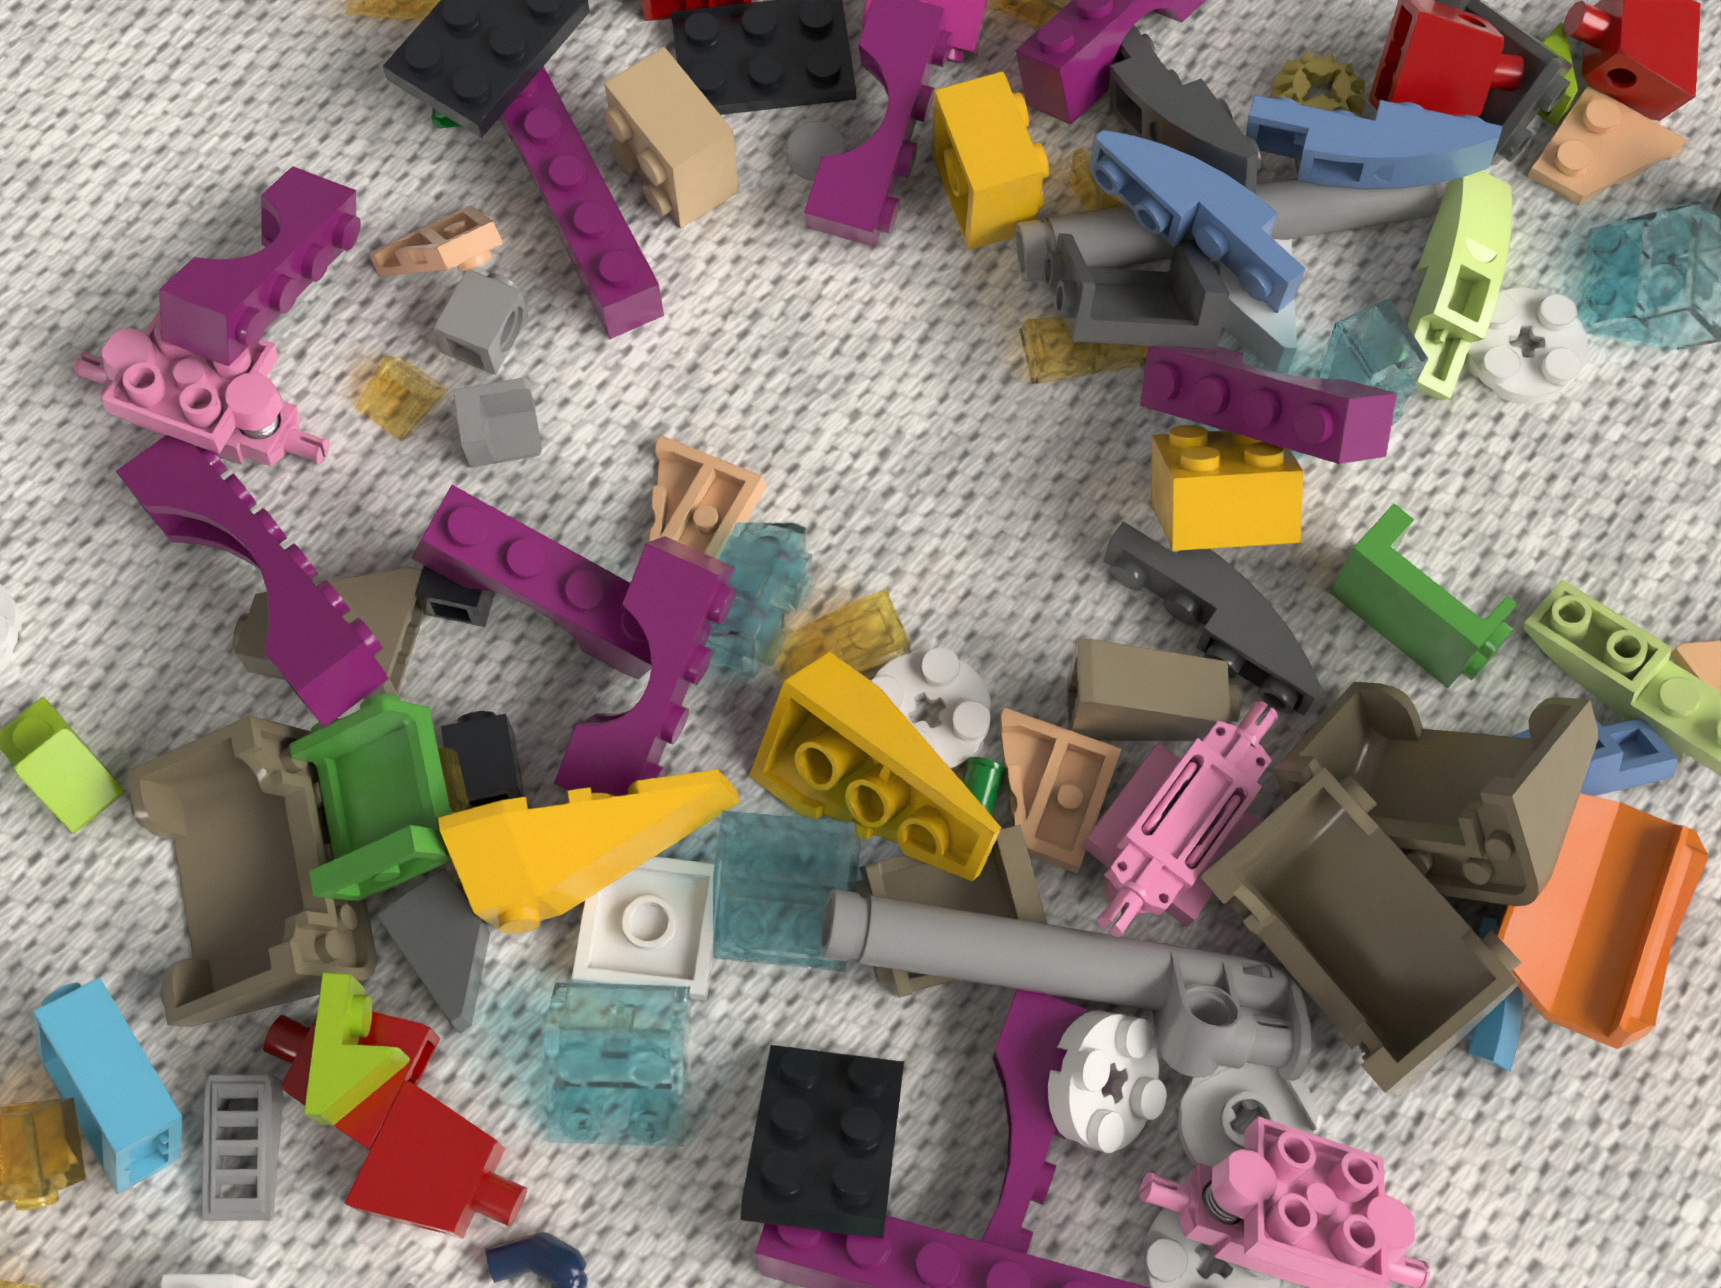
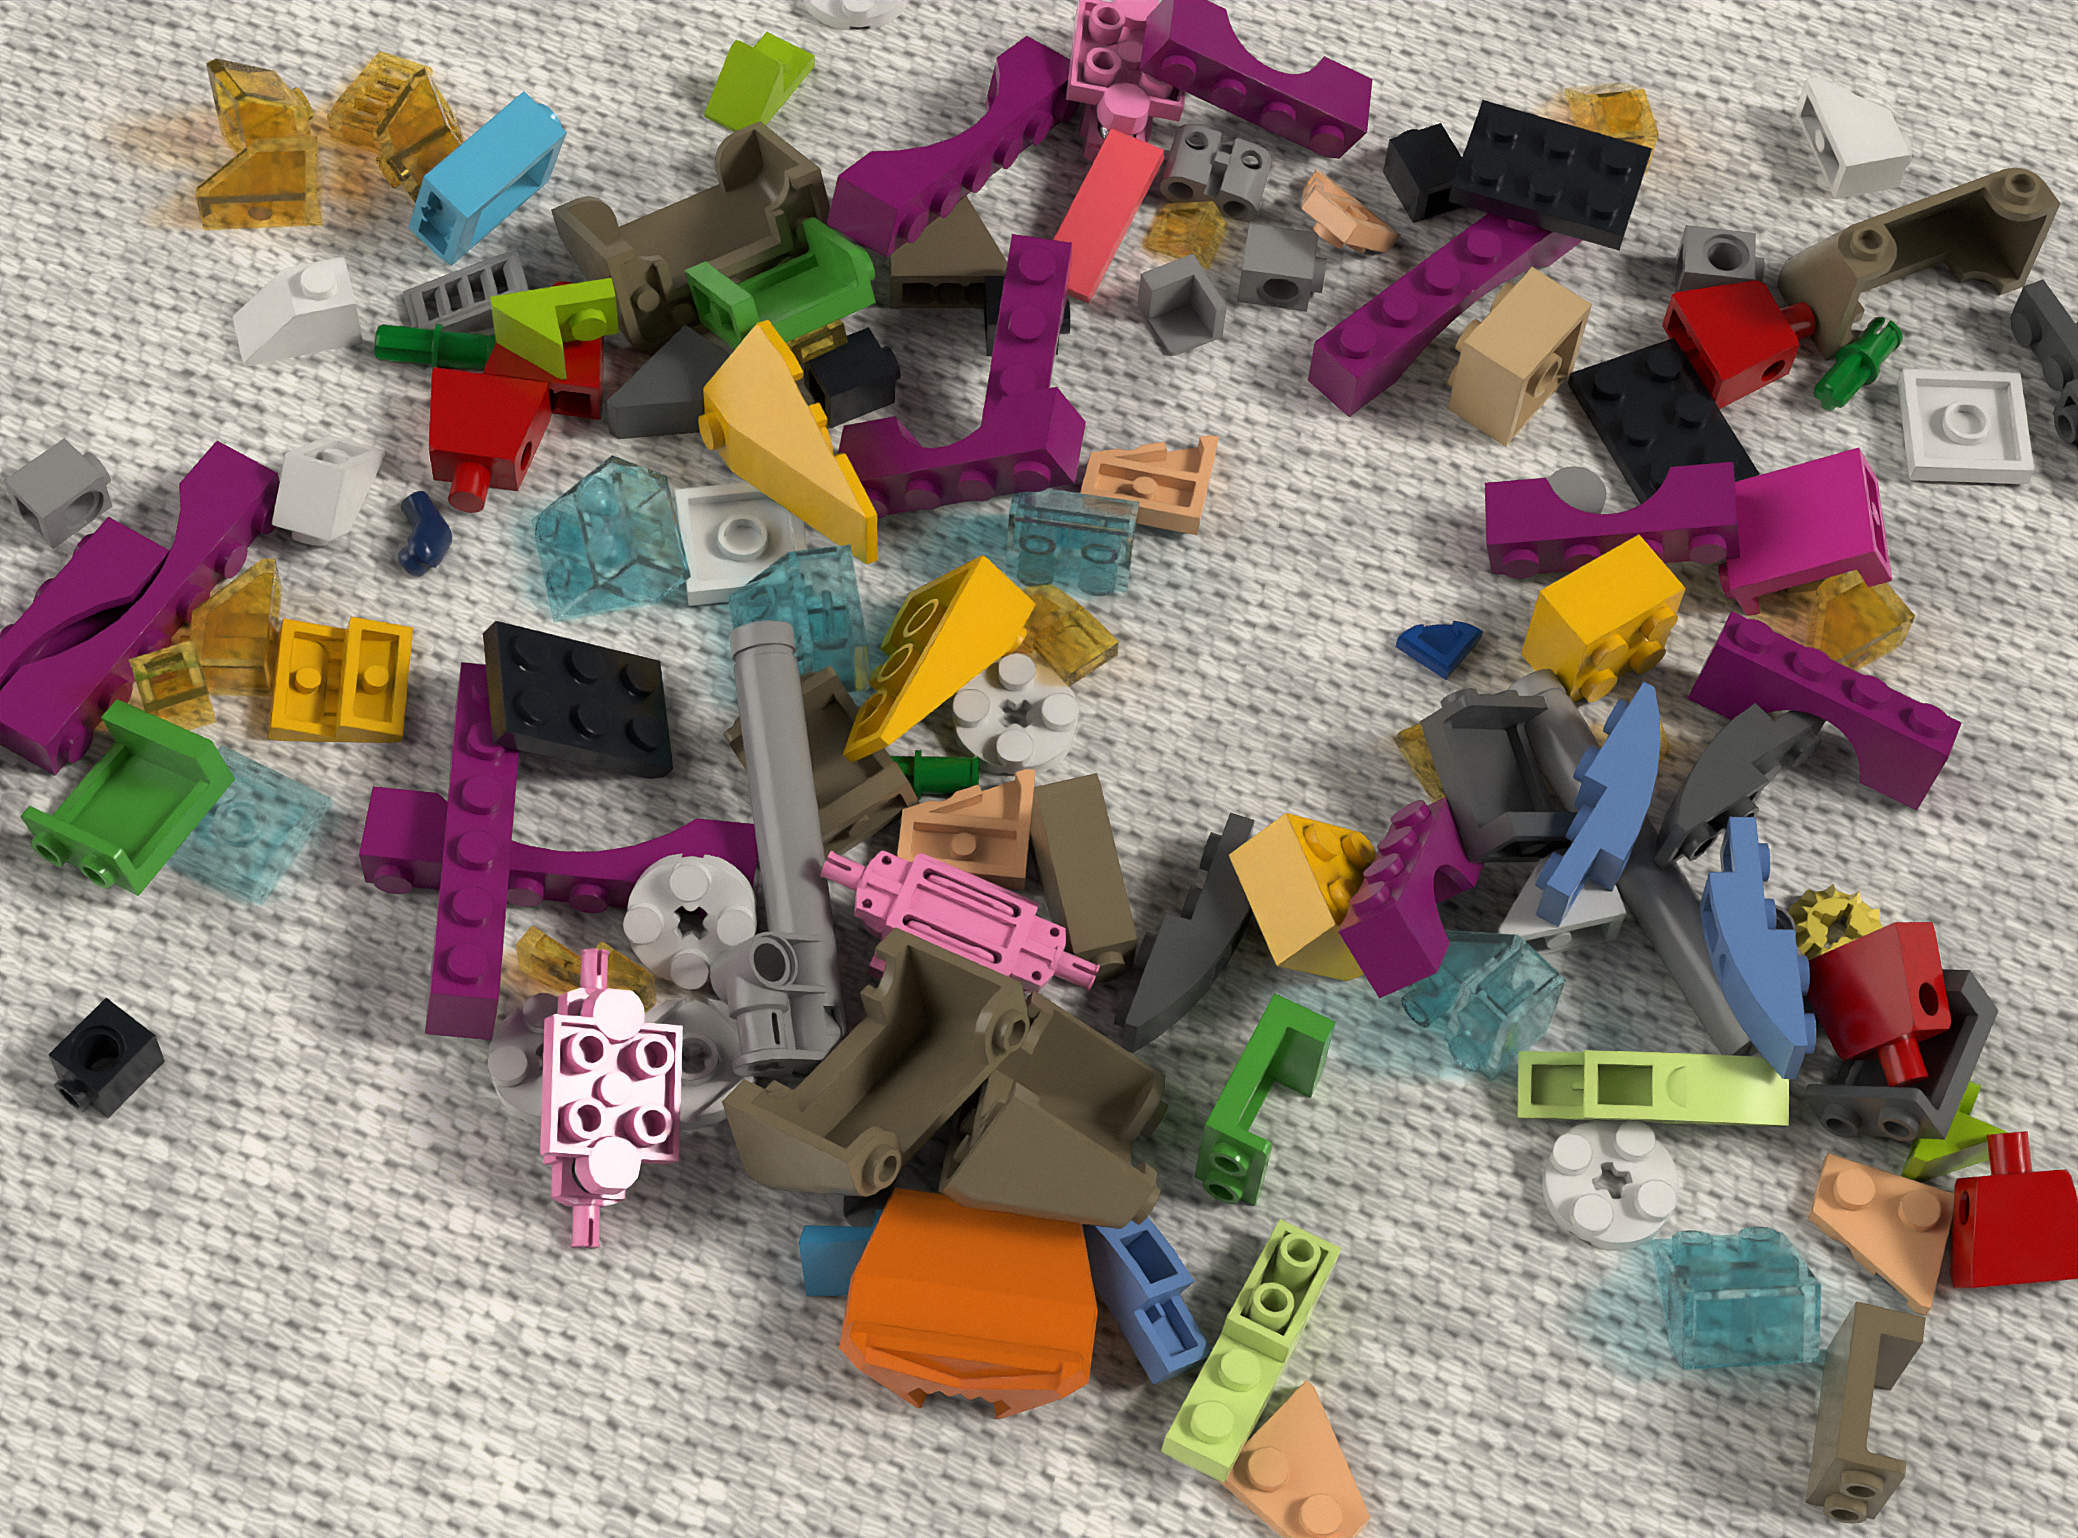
camera: 70 degrees right, 10 degrees down
(296, 1197) = (433, 347): none -> green axle
(343, 346) = (1216, 172): none -> light grey piece
(359, 465) = (1106, 208): none -> coral tile
(411, 156) = (1422, 171): none -> black brick
(945, 313) = (1439, 645): none -> blue tile
(1120, 1231) = (560, 968): none -> clear yellow slope

